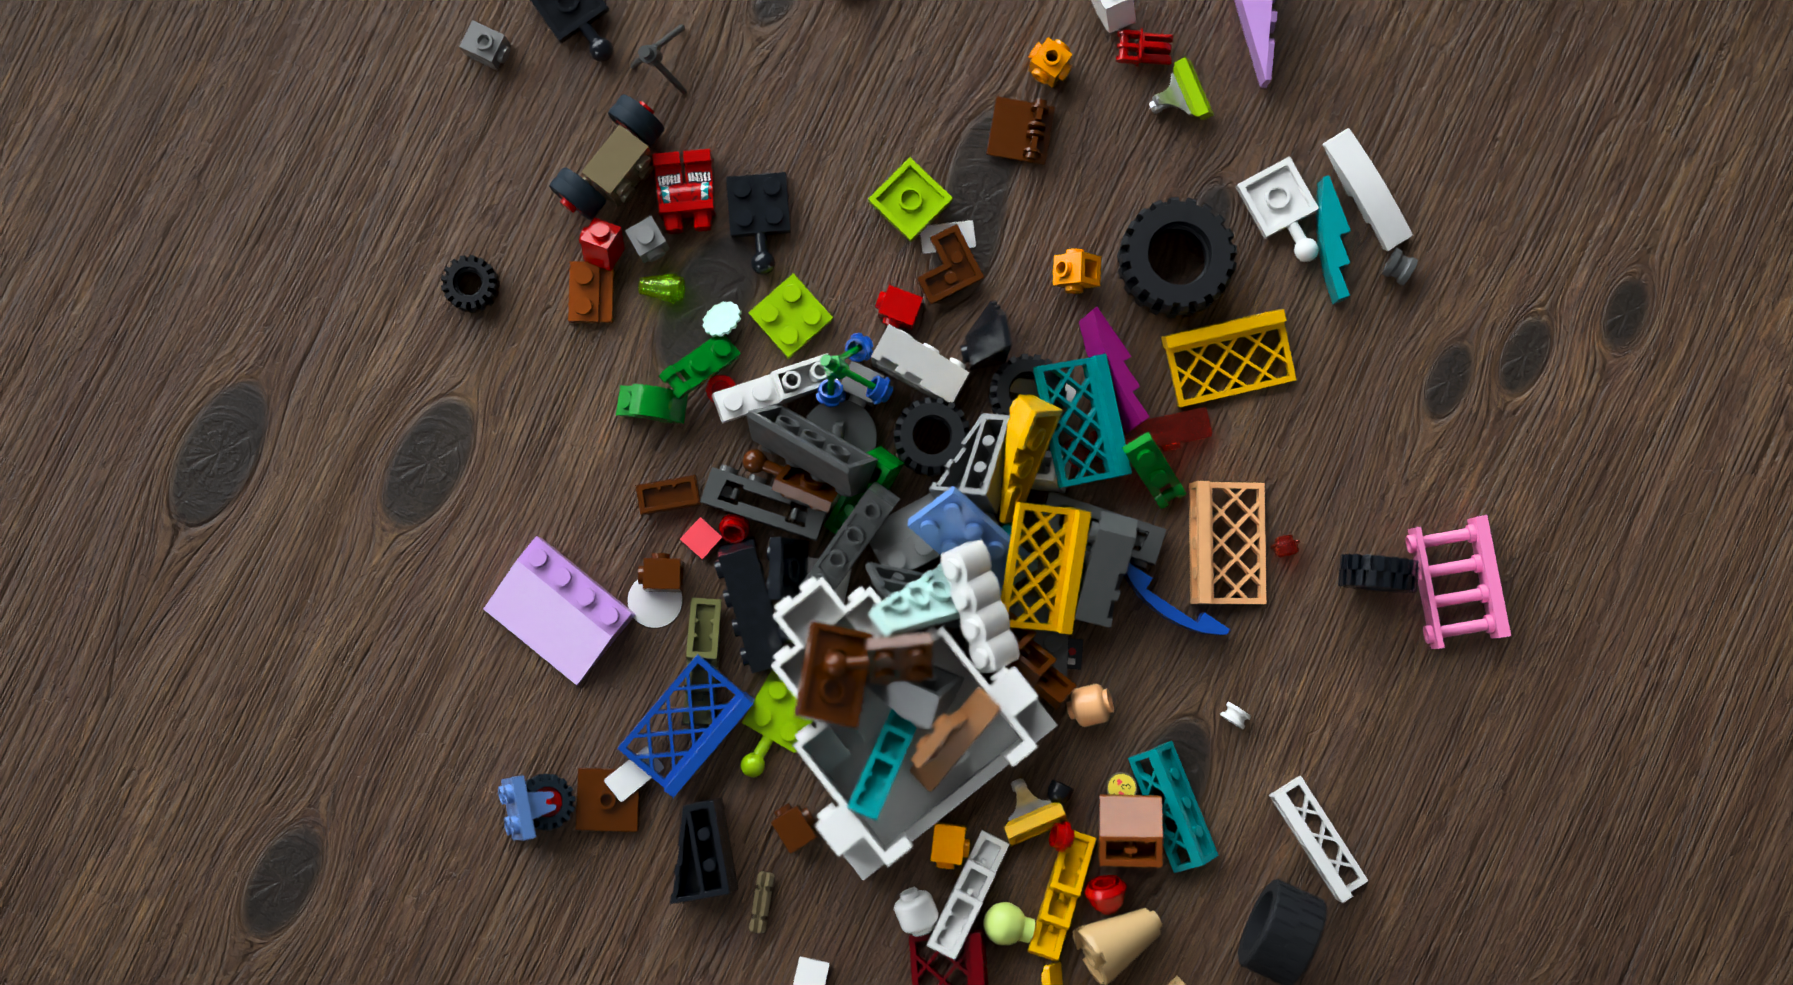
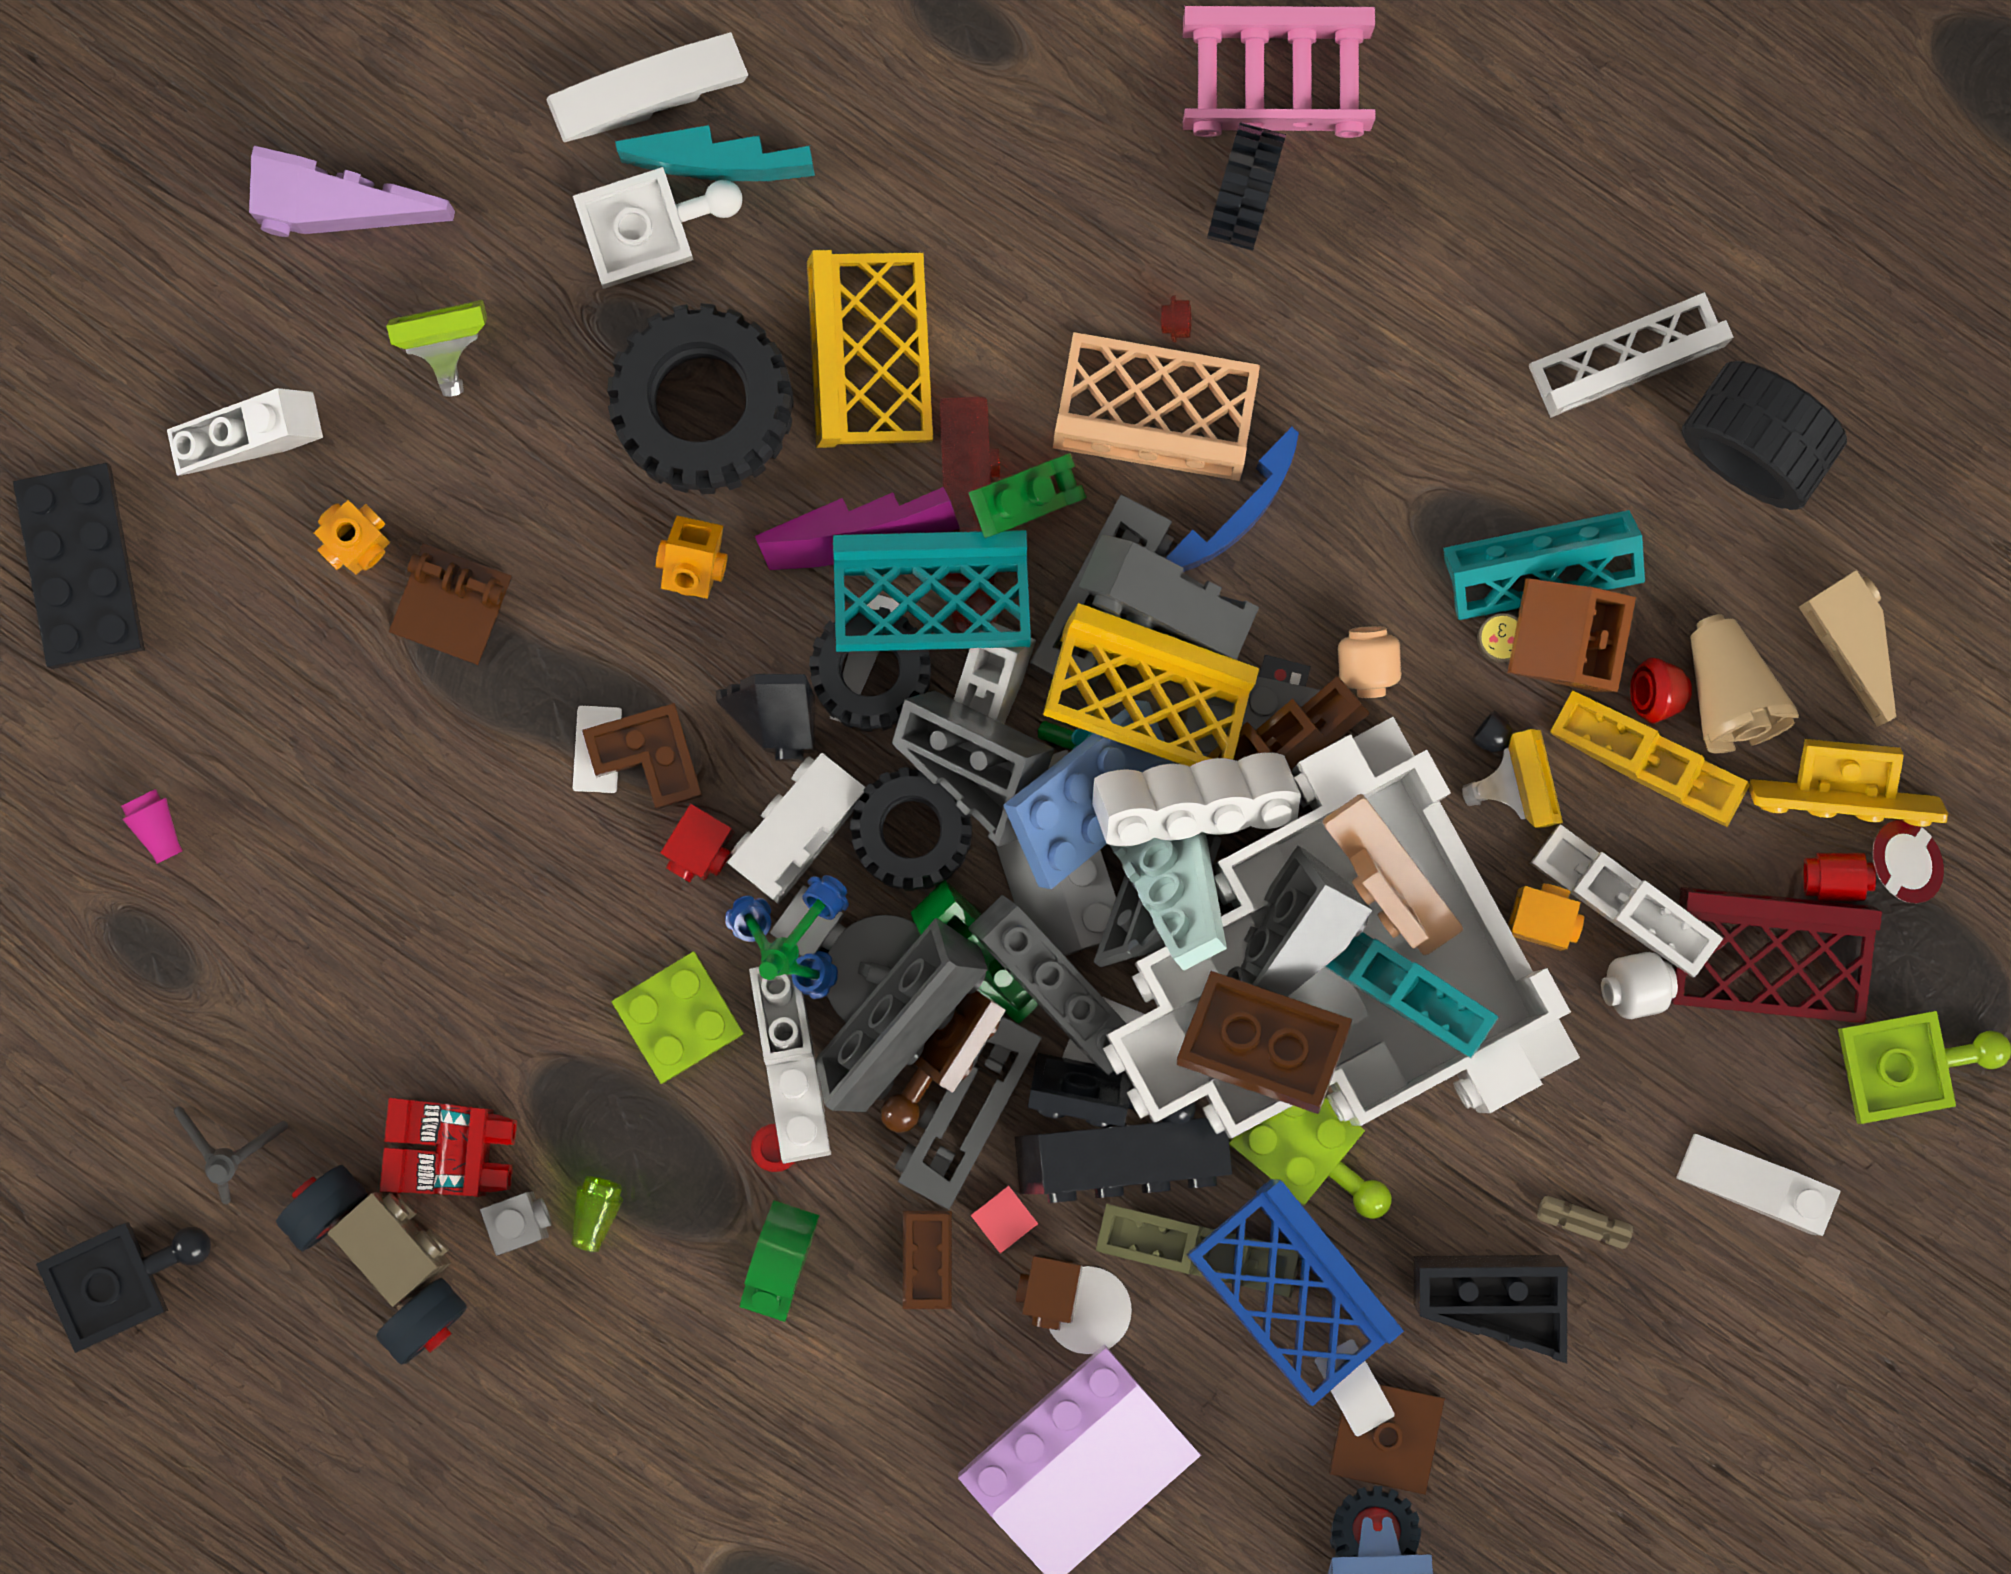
camera: 80 degrees left, 0 degrees up
(457, 271) = (502, 1528): black tyre -> none
(485, 45) = (149, 1431): light grey brick -> none
(590, 293) = (581, 1328): dark orange plate -> none
(602, 243) = (508, 1296): red brick -> none
(700, 365) = (732, 1172): green plate -> none
(721, 319) = (663, 1127): light aqua piece -> none
(734, 528) = (998, 1164): red plate -> none
(759, 208) = (498, 1037): black plate -> none
(794, 826) = (1478, 1150): reddish brown brick -> none
(888, 659) = (1257, 953): reddish brown plate -> none
(910, 199) = (528, 796): lime plate -> none
(1007, 924) = (1681, 848): yellowish green piece -> none
(1027, 441) = (952, 682): yellow wedge -> none
(1061, 836) = (1562, 741): red plate -> none
(1150, 48) = (356, 389): red arm -> none
(1235, 715) = (1422, 444): white bush -> none
(1399, 266) = (776, 62): dark grey wheel -> none

